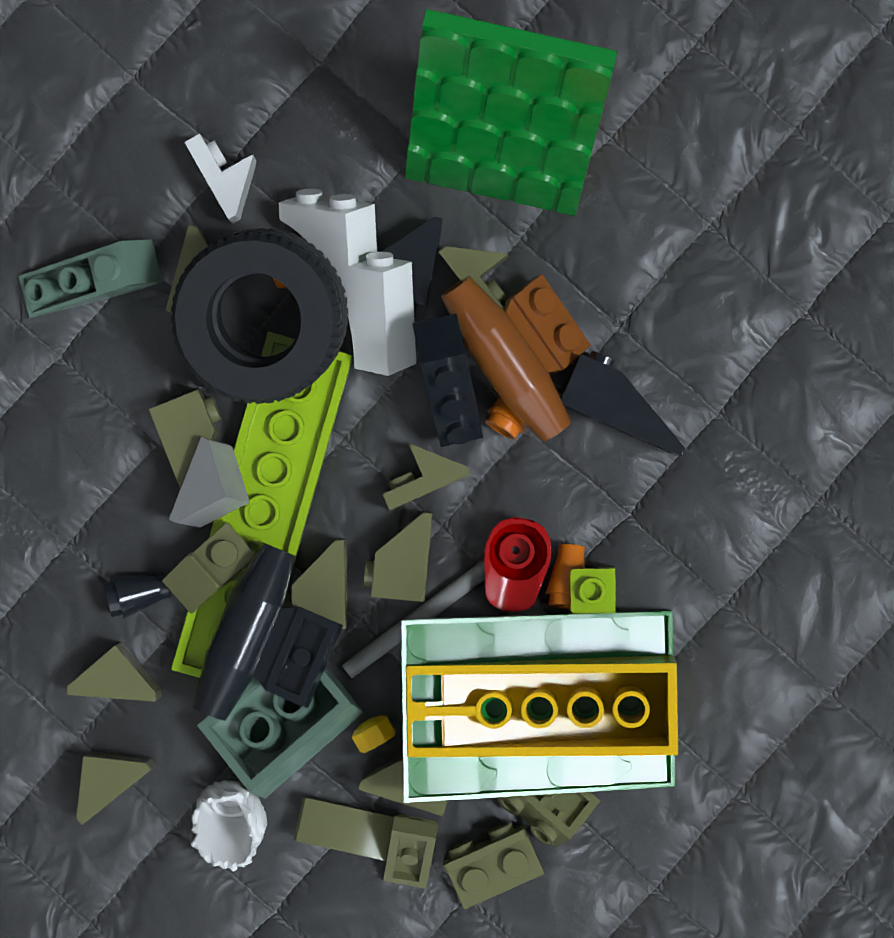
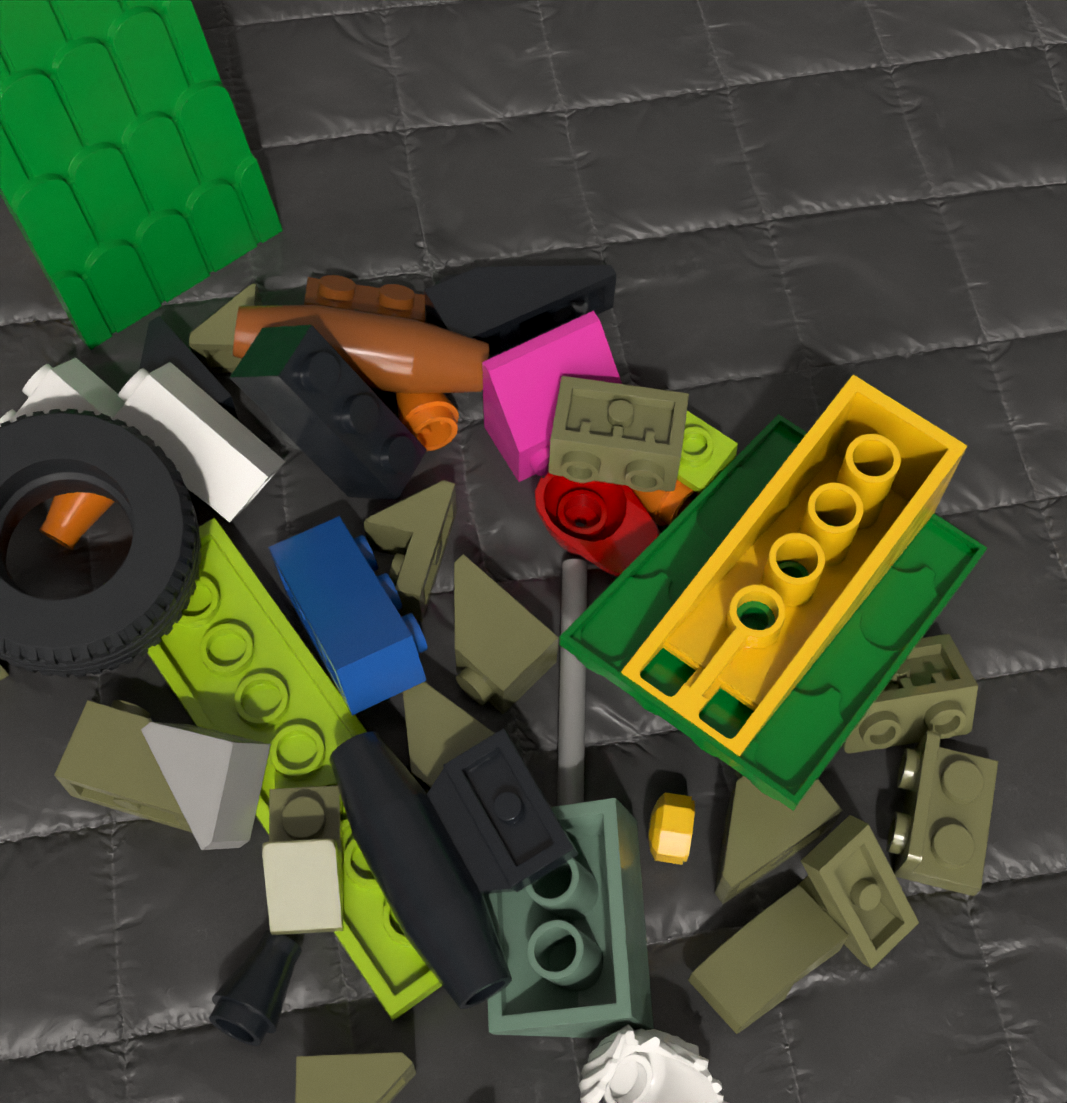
camera: 50 degrees left, 25 degrees down
(350, 481) = (351, 614): none -> blue brick
(563, 546) = (618, 434): none -> olive bracket
(568, 487) = (525, 386): none -> dark pink slope

